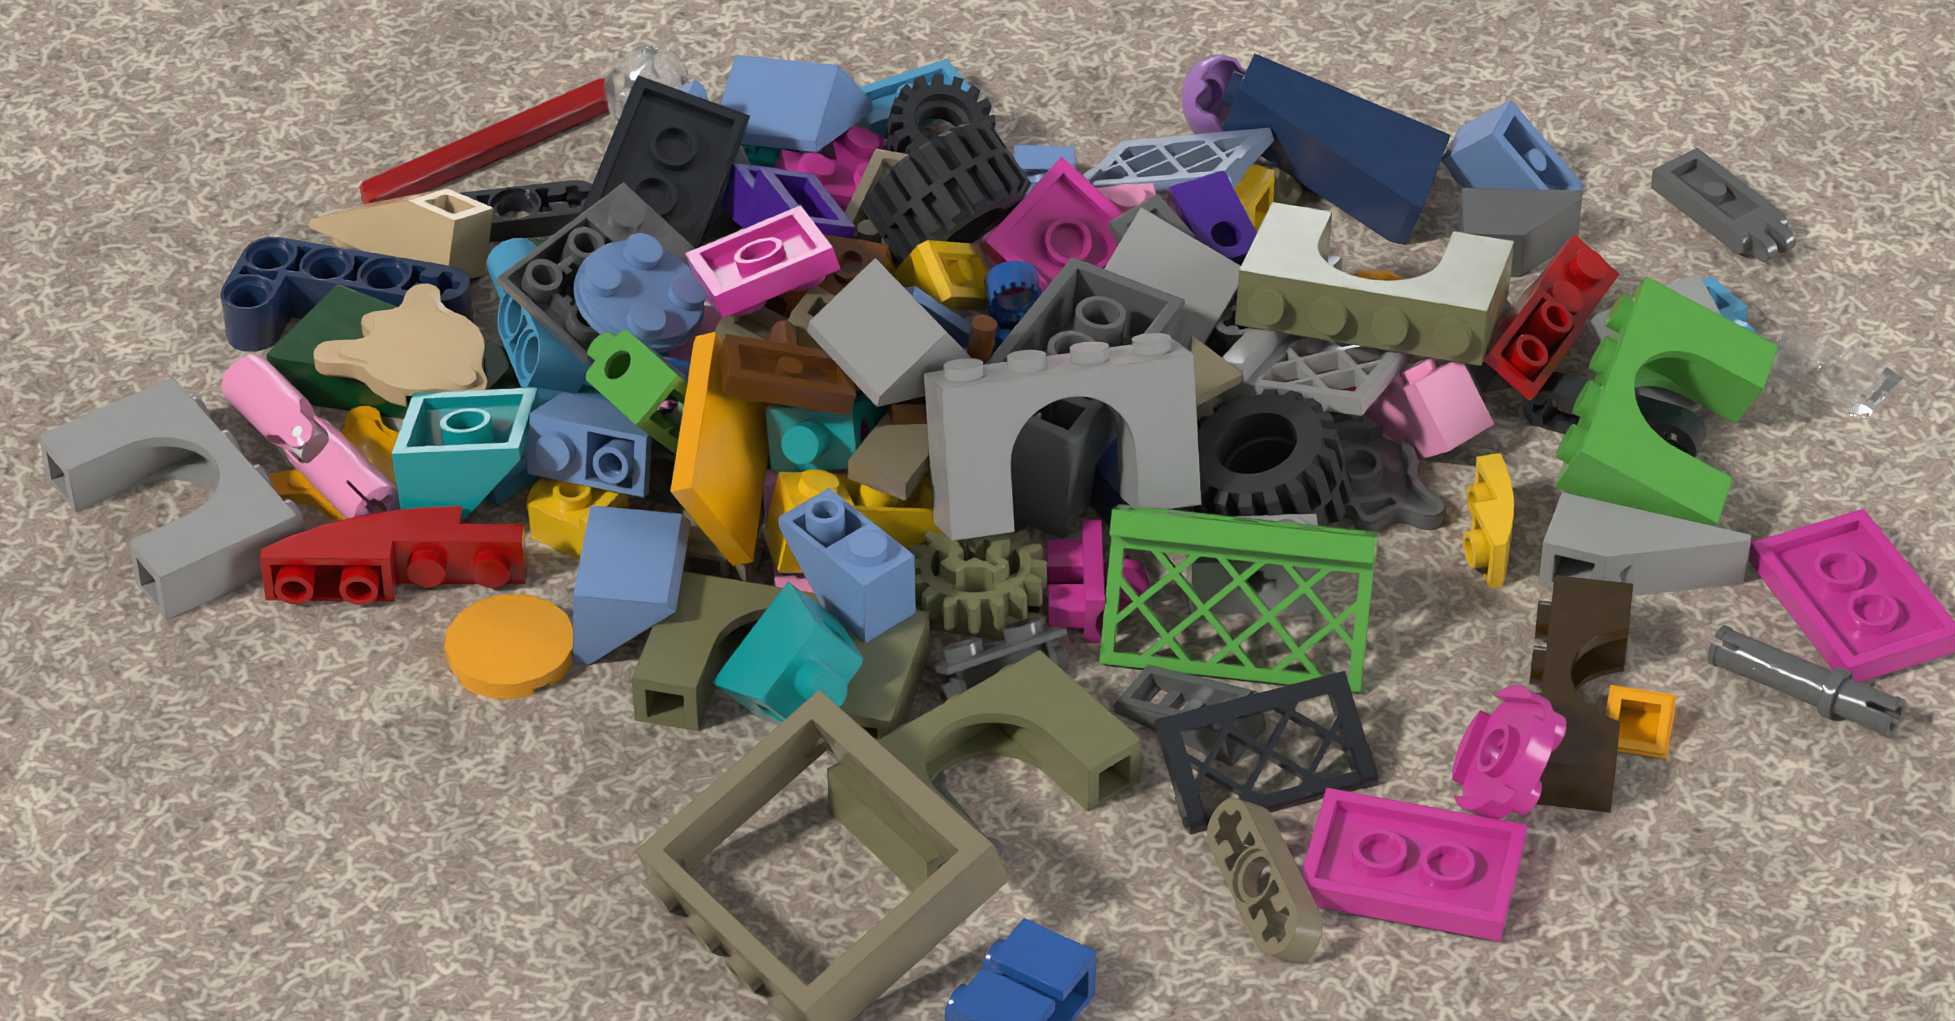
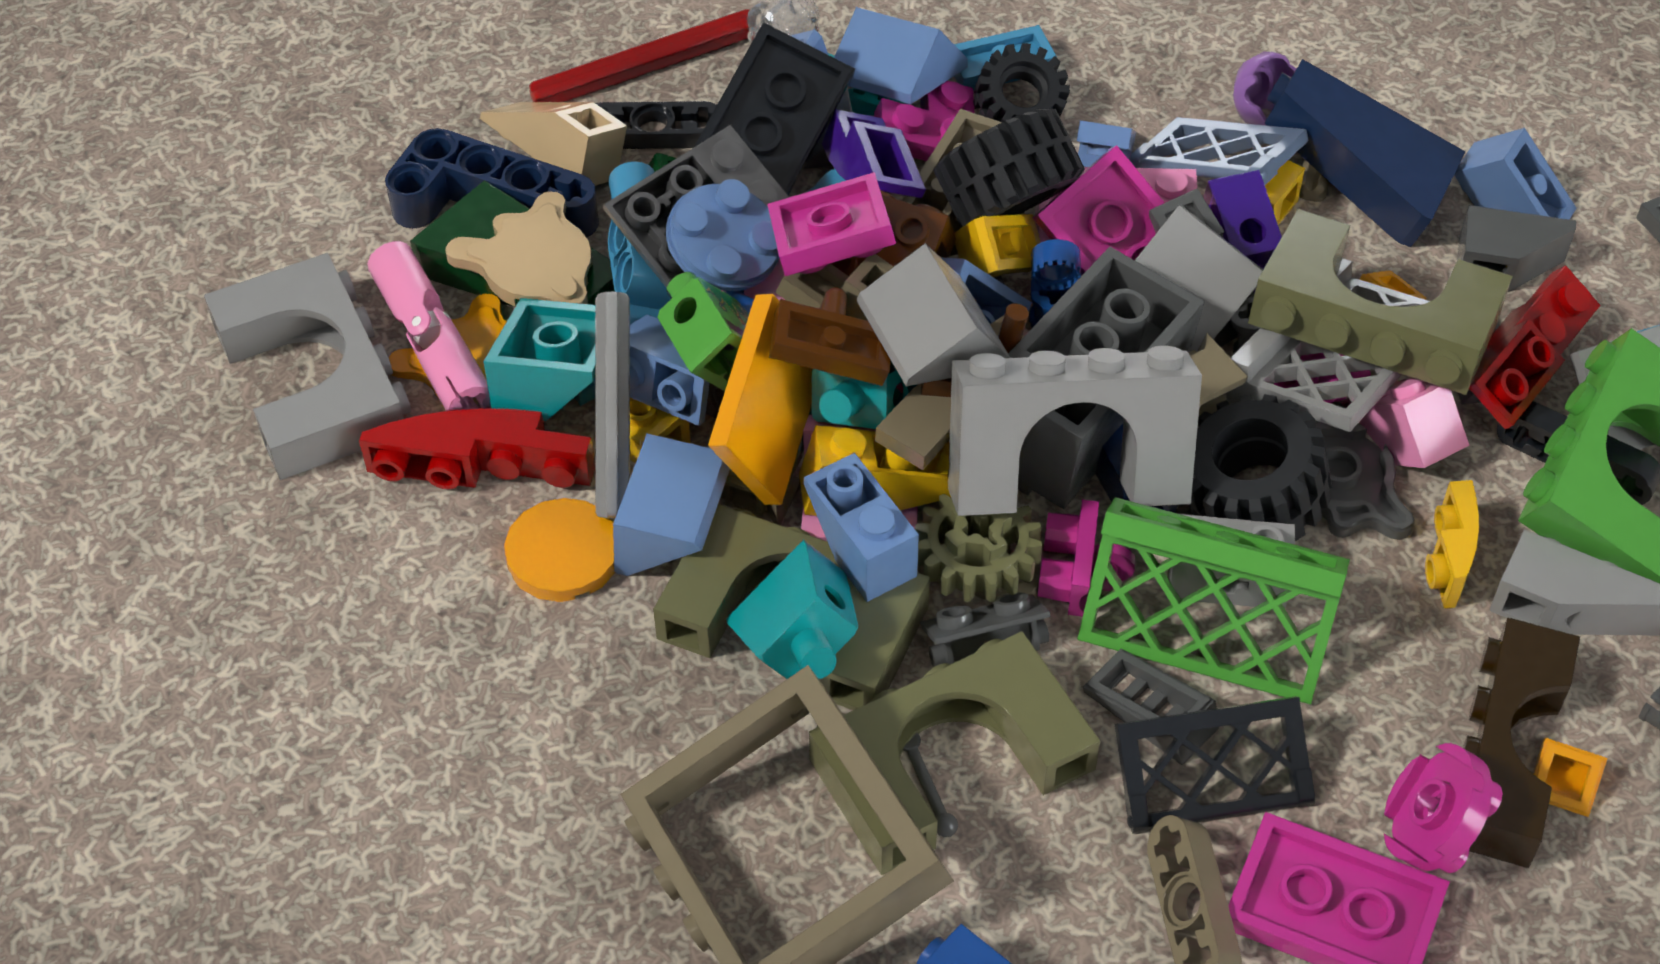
camera: 10 degrees right, 10 degrees up
(545, 481) = (612, 401): none -> light grey axle

